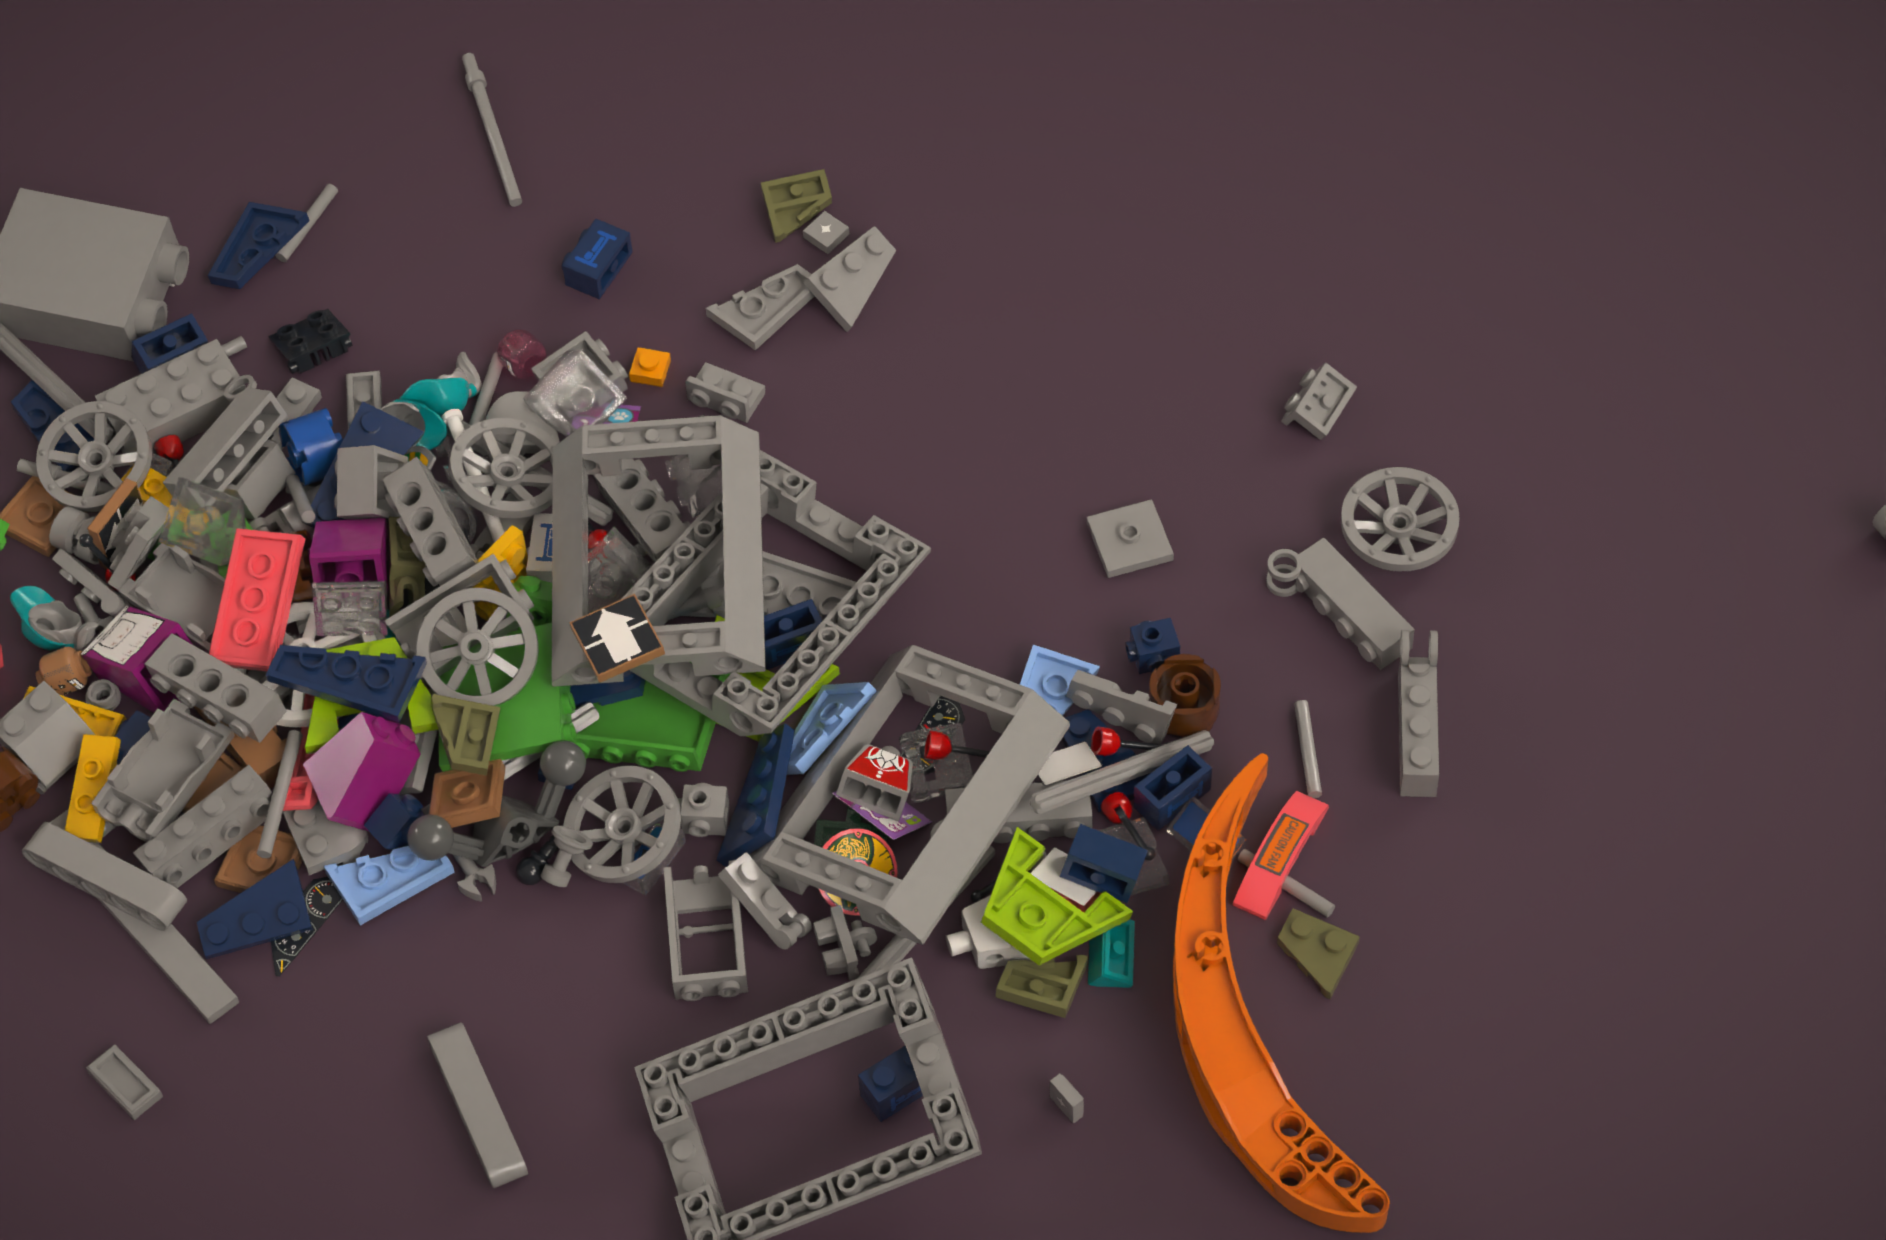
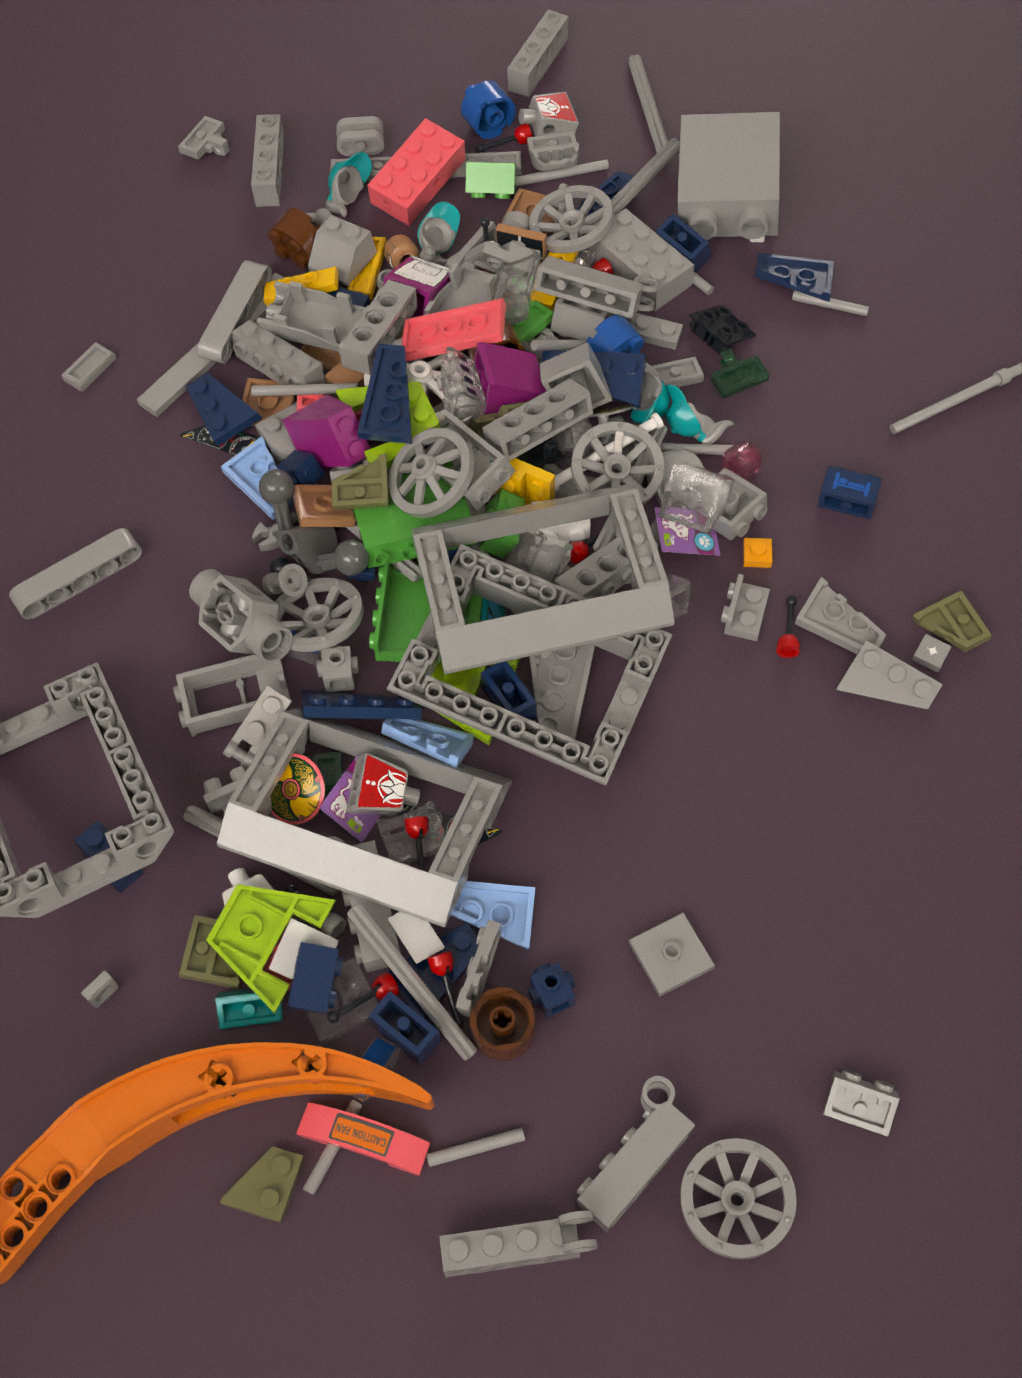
camera: 80 degrees right, 5 degrees up
(390, 333) = (738, 375): none -> clear green plate
(608, 899) = (240, 616): none -> light grey brick
(617, 638) = (433, 551): tile -> none
(782, 359) = (788, 644): none -> red hinge

